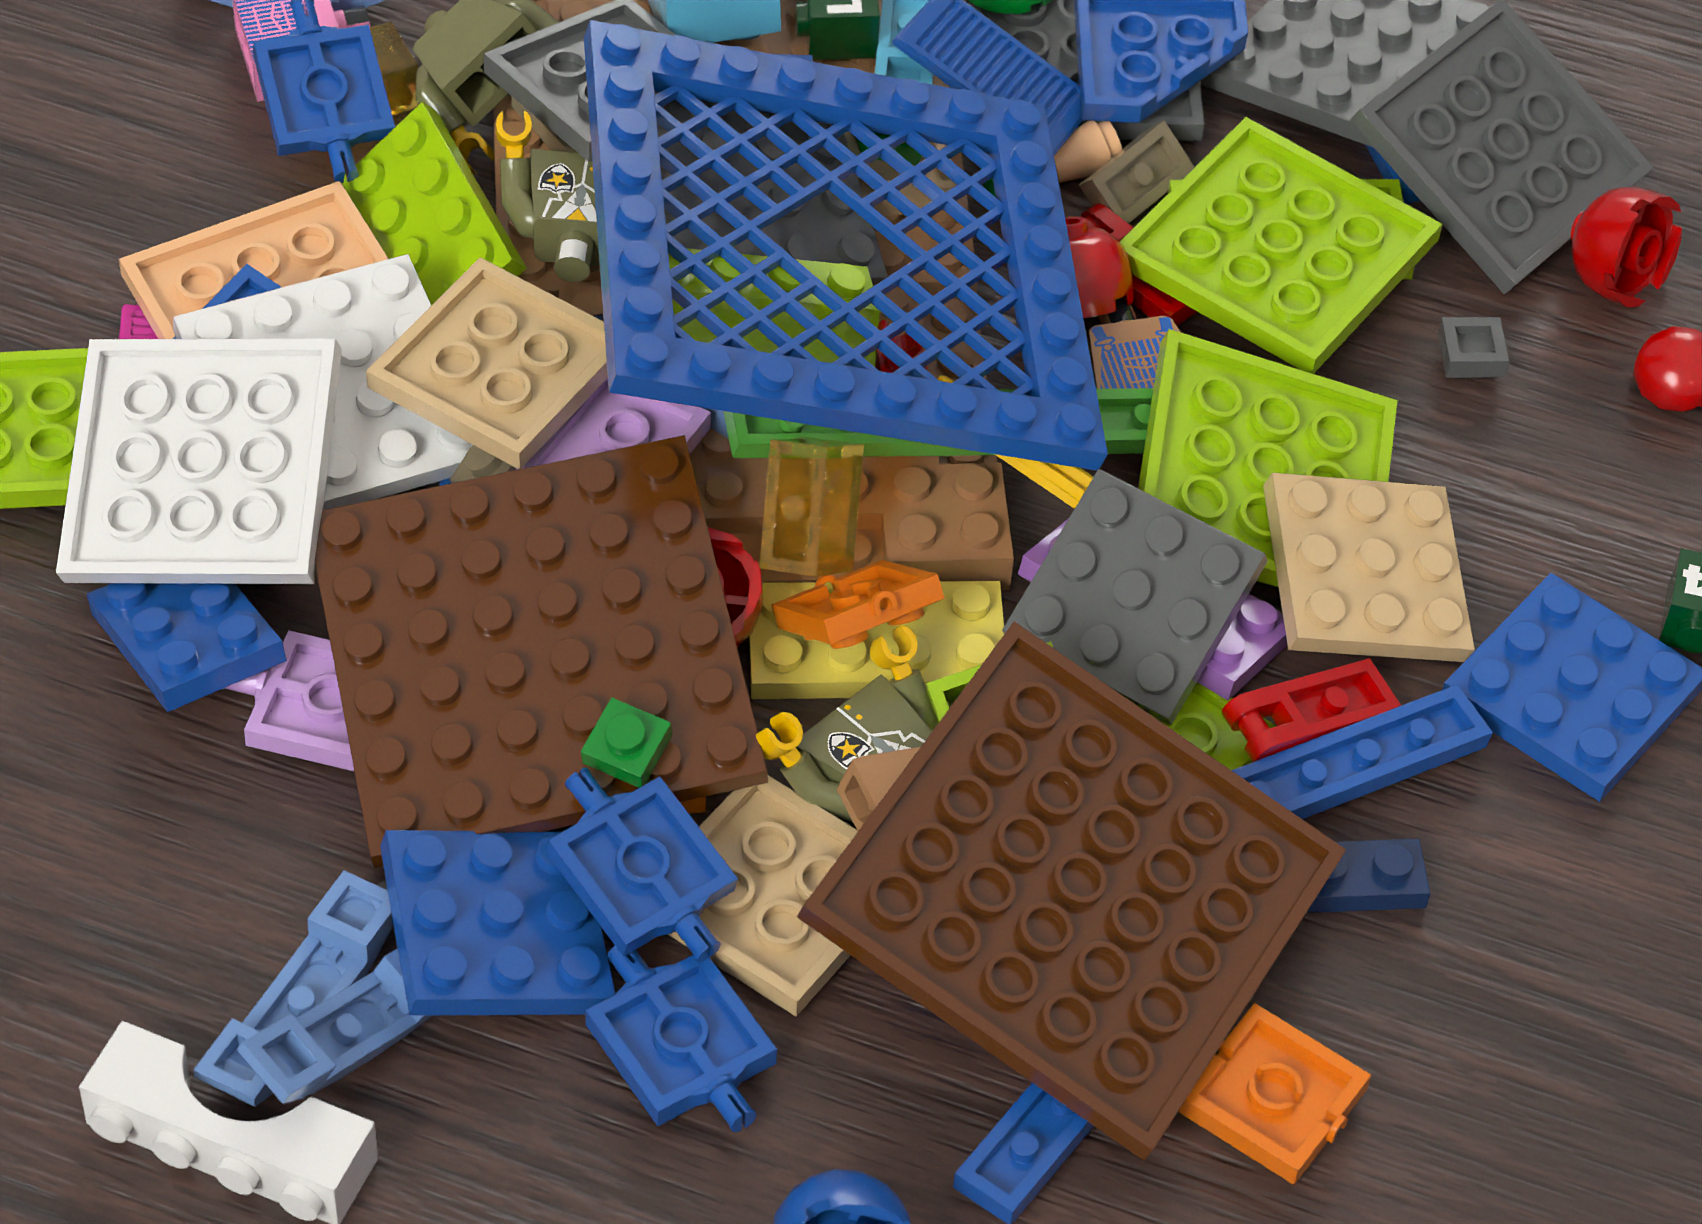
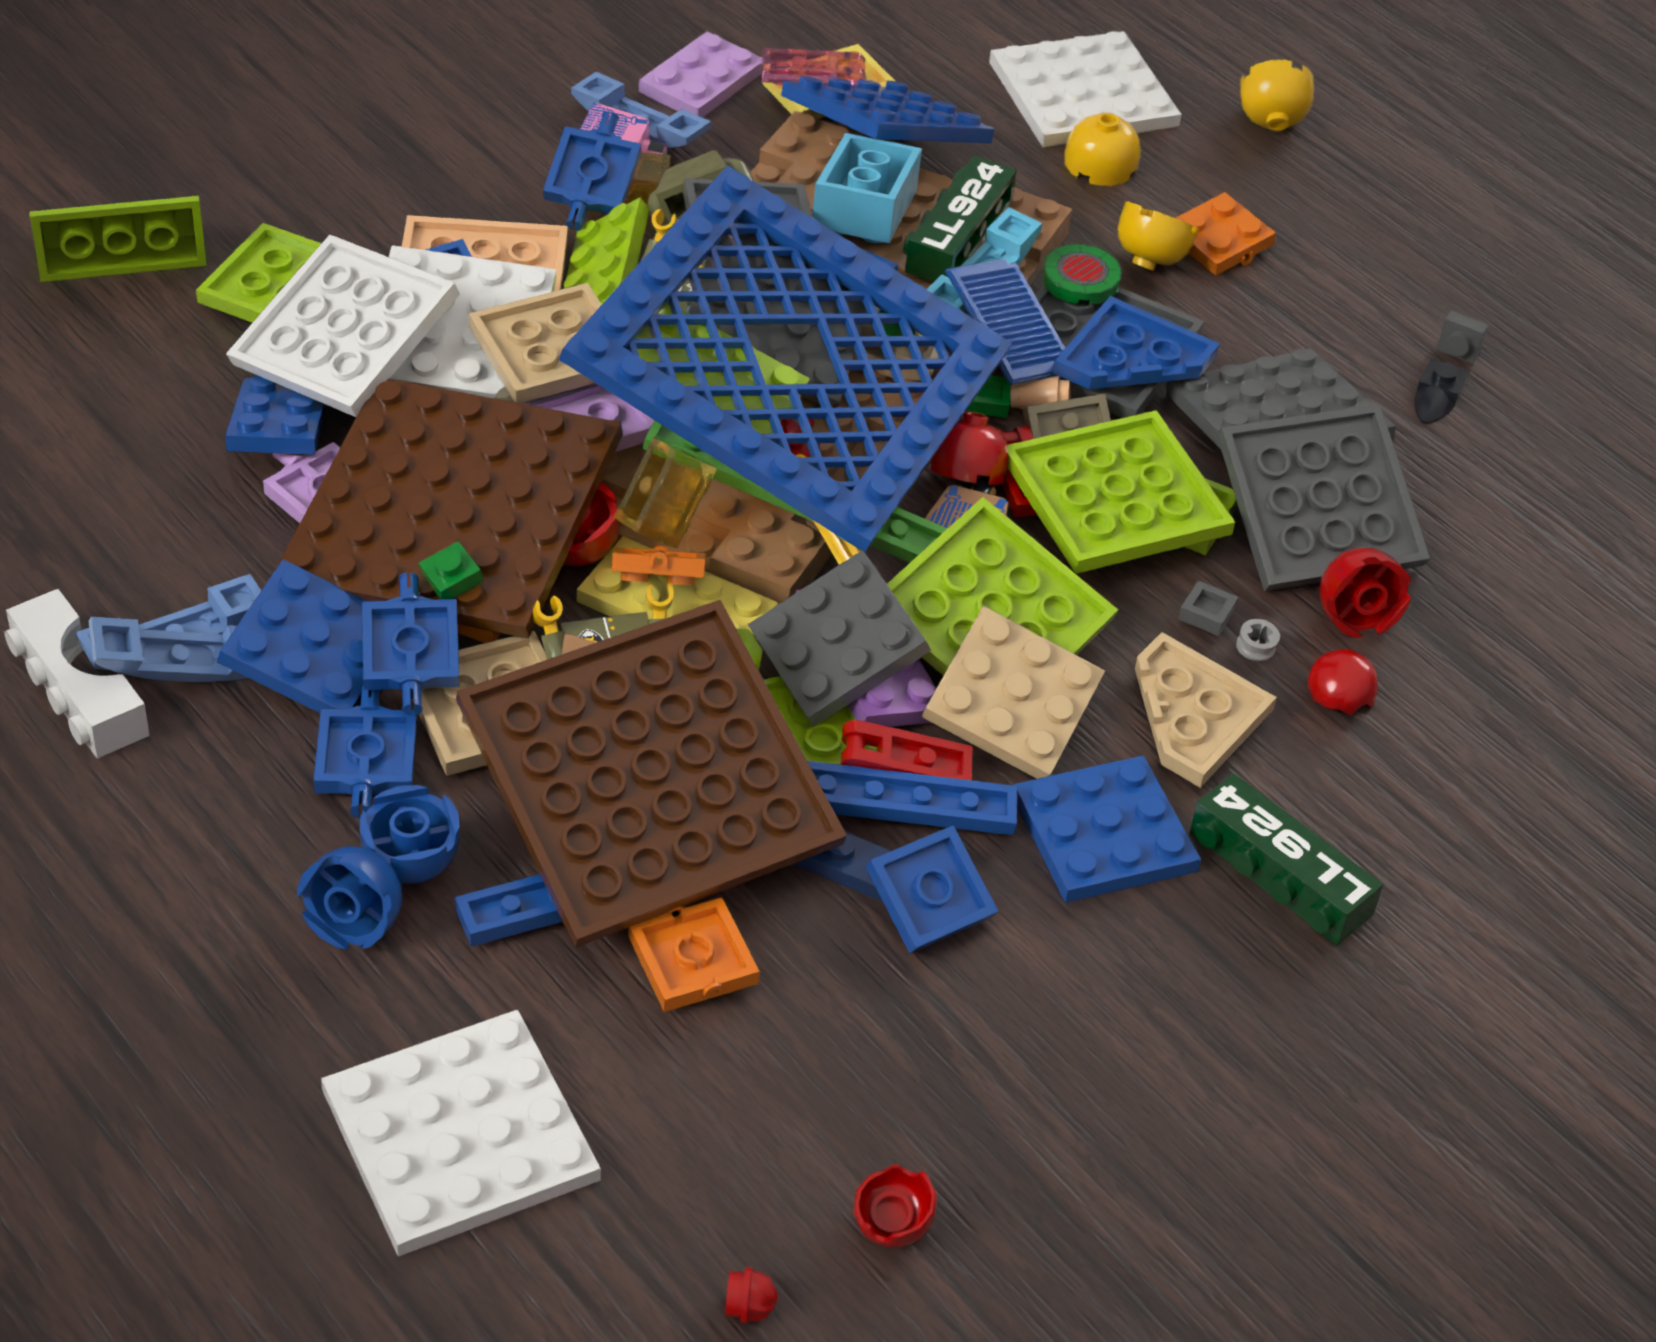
camera: 30 degrees right, 5 degrees down
(851, 1115) = (412, 832): none -> blue cylinder
(1473, 866) = (931, 889): none -> blue plate
(1551, 346) = (1262, 630): none -> light grey bush
(1558, 482) = (1196, 708): none -> tan plate

